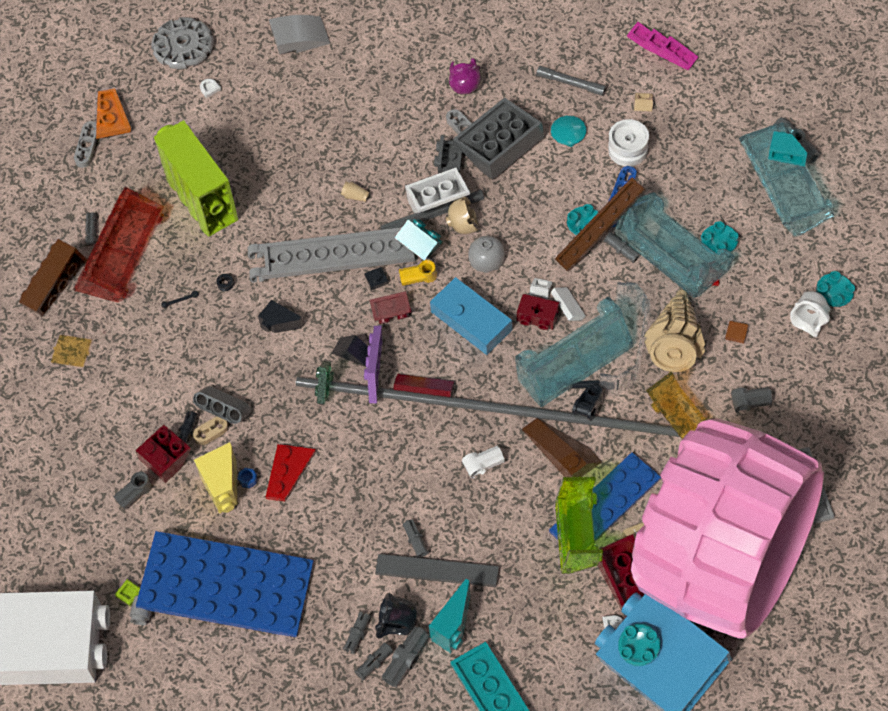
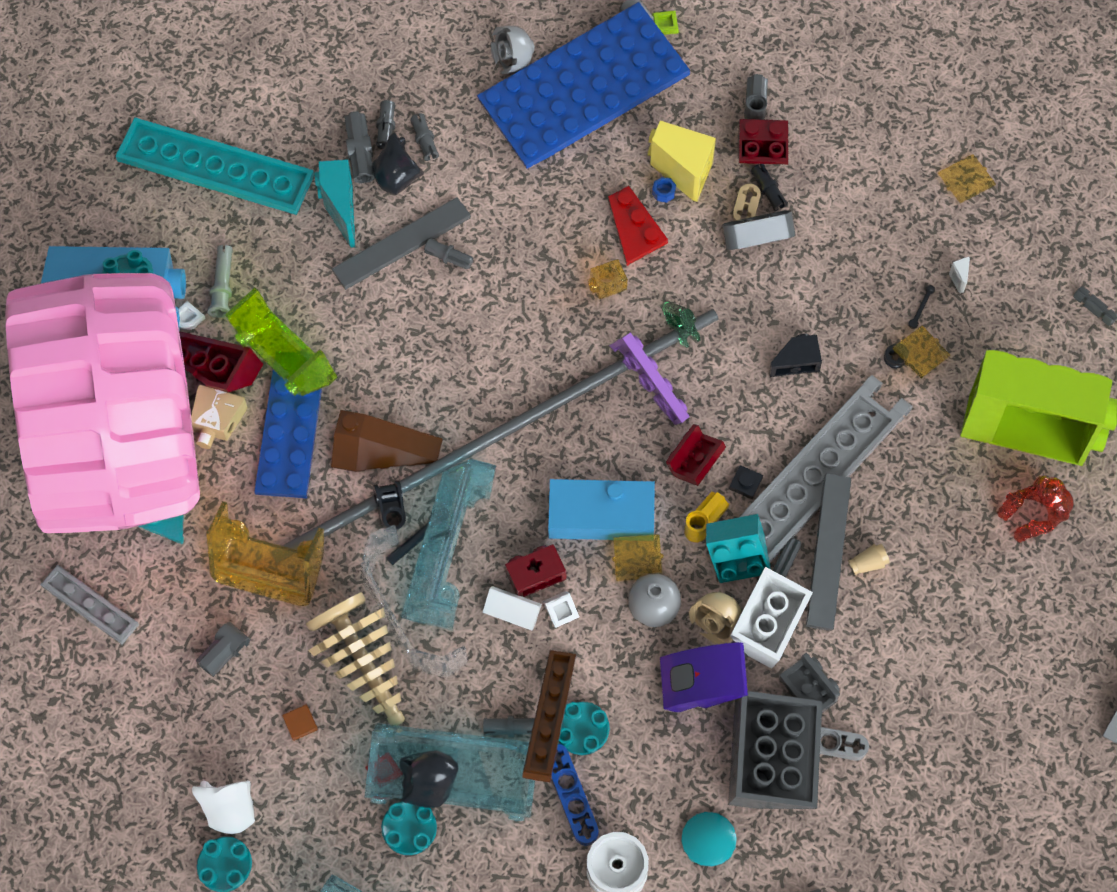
camera: 135 degrees right, 5 degrees up
(51, 277) = (1066, 221): reddish brown wedge -> none
(119, 246) = (1039, 299): clear red windscreen -> none
(140, 295) = (959, 273): none -> white slope
(209, 272) = (921, 352): none -> clear yellow piece
(234, 143) = (1050, 493): none -> clear red hair
(243, 642) = (513, 44): none -> light grey cylinder
(334, 438) = (610, 270): none -> clear yellow brick
(352, 349) = (693, 383): black slope -> none
(368, 210) = (828, 552): none -> dark grey tile
(423, 385) = (582, 403): dark red tile -> none
(464, 77) = (893, 805): magenta hair -> none
(475, 279) = (637, 556): none -> clear yellow piece
(479, 463) = (450, 369): white piece -> none
(501, 190) = (703, 676): none -> dark purple slope
(579, 624) = (220, 290): none -> light grey pin
(685, 239) = (432, 778): none -> black piece

